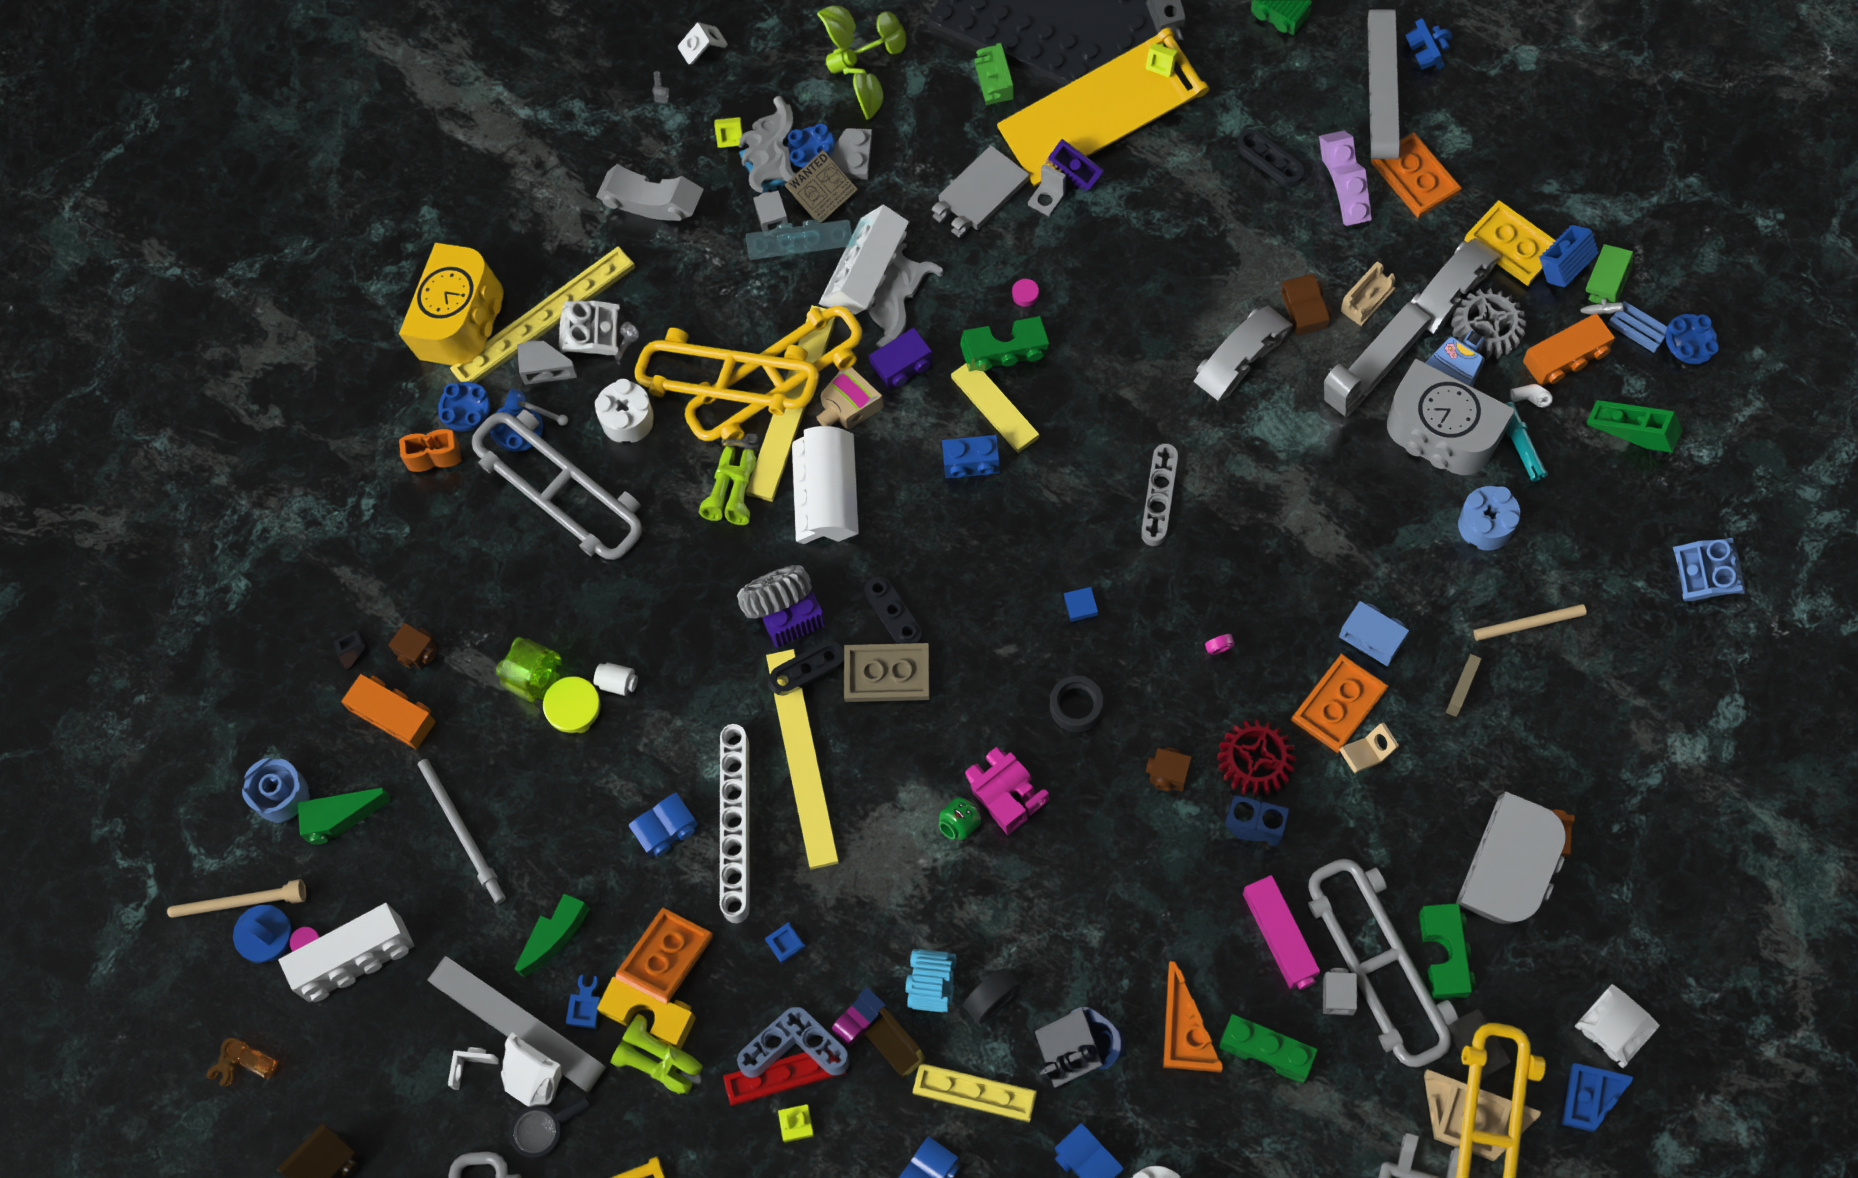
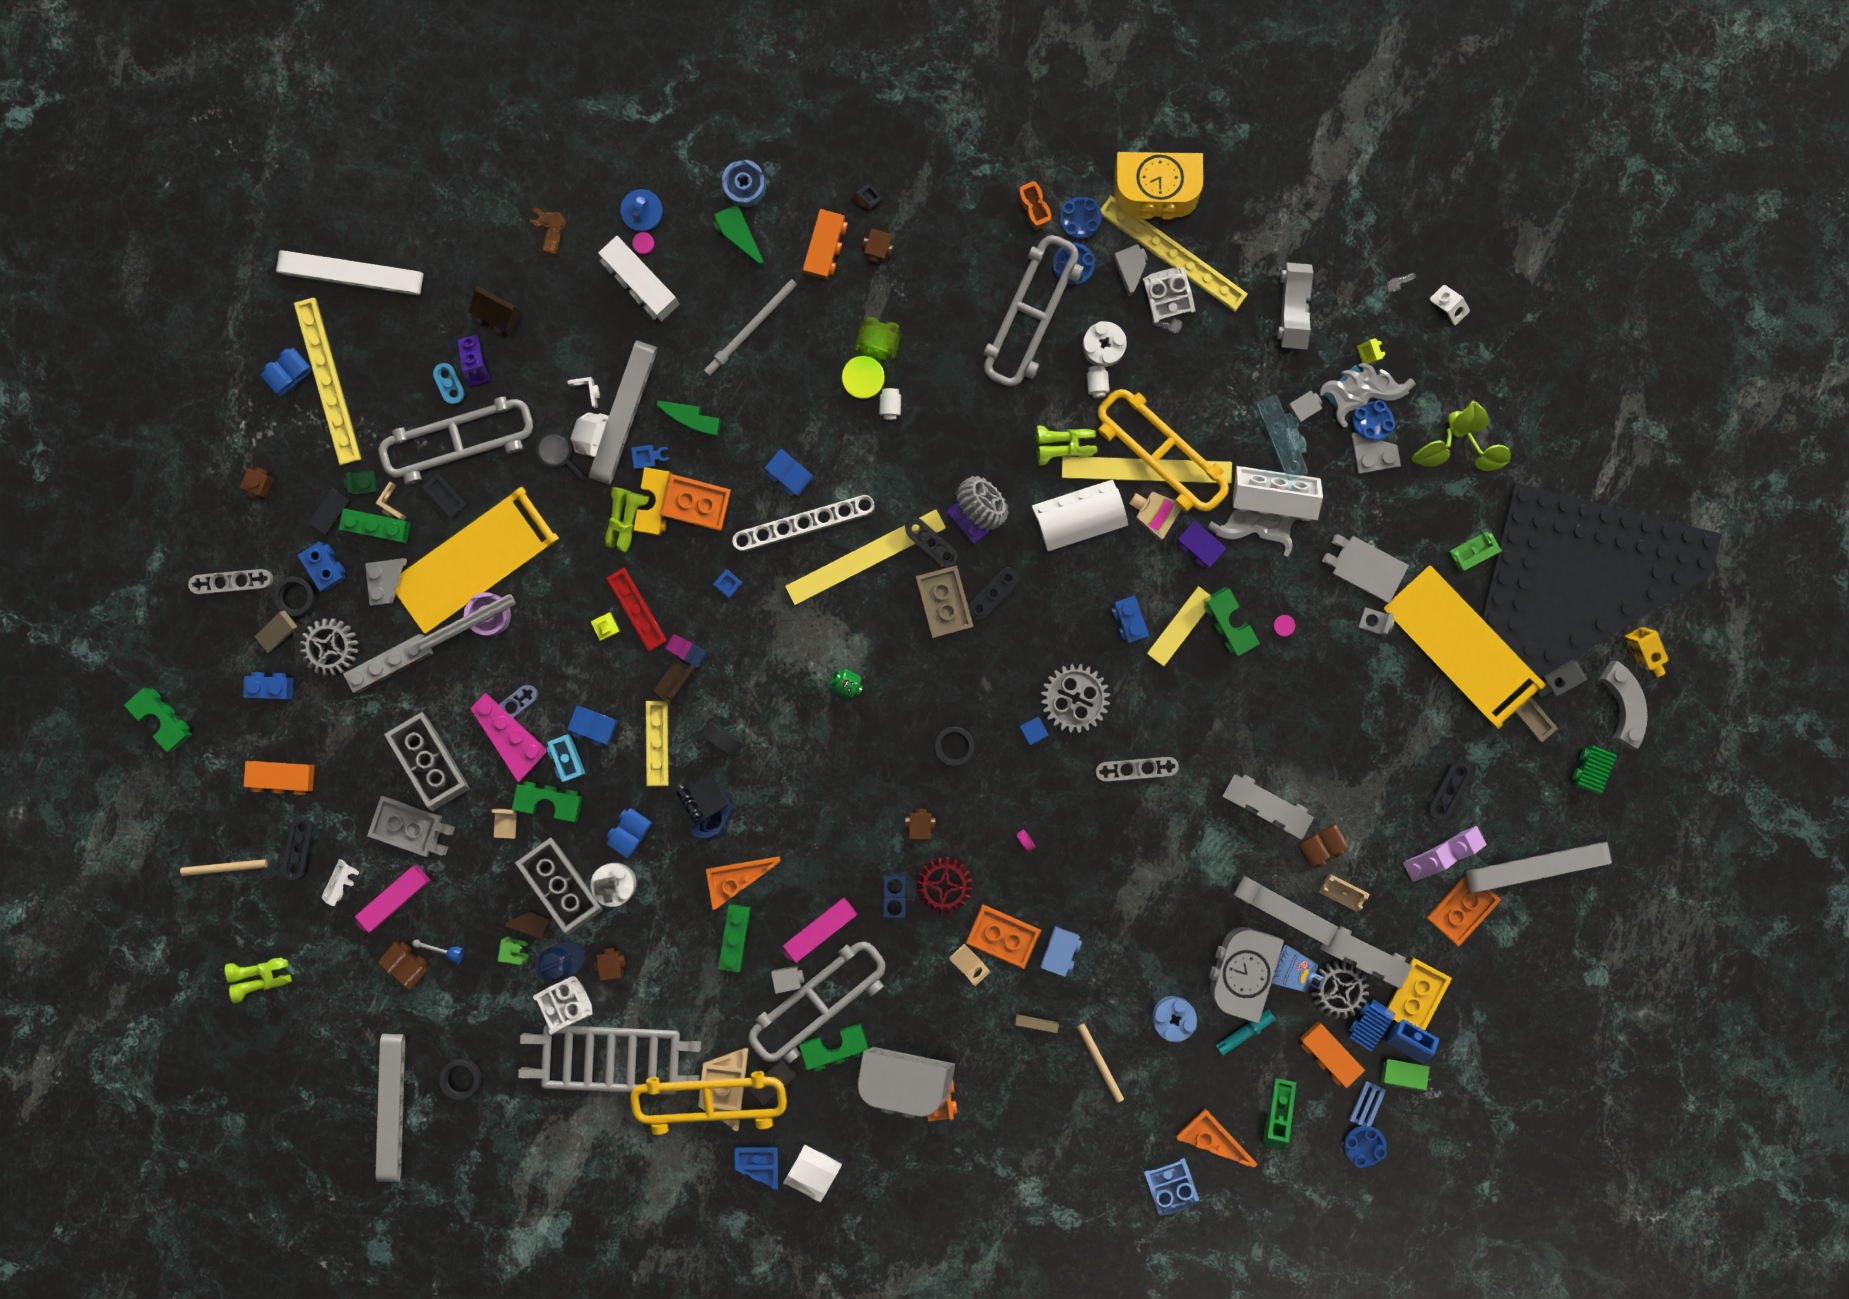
camera: 70 degrees right, 20 degrees up
(293, 892) = (675, 222): tan piece -> none
(516, 400) = (1090, 258): hinge -> none
(667, 430) = (1098, 381): none -> white brick
(676, 342) = (1173, 365): yellow bar -> none
(742, 442) = (1100, 440): clear hand -> none
(790, 1035) = (662, 606): sand blue beam -> none
(820, 187) = (1336, 440): dark tan tile -> none
(932, 980) = (722, 695): medium azure brick -> none
(998, 783) = (879, 706): dark pink hips -> none
(1072, 557) = (1083, 680): none -> light grey gear
(1074, 165) = (1400, 637): dark purple brick -> none
(1161, 59) = (1510, 686): neon yellow tile -> none
(1210, 54) = (1536, 720): none -> dark tan tile
(1422, 36) = (1593, 890): blue hips -> none
(1533, 393) = (1289, 1034): white arm -> none
(1541, 295) = (1372, 1025): none -> blue brick
(1603, 308) = (1376, 1075): light grey helmet -> none
(1648, 510) = (1208, 1134): none -> orange wing

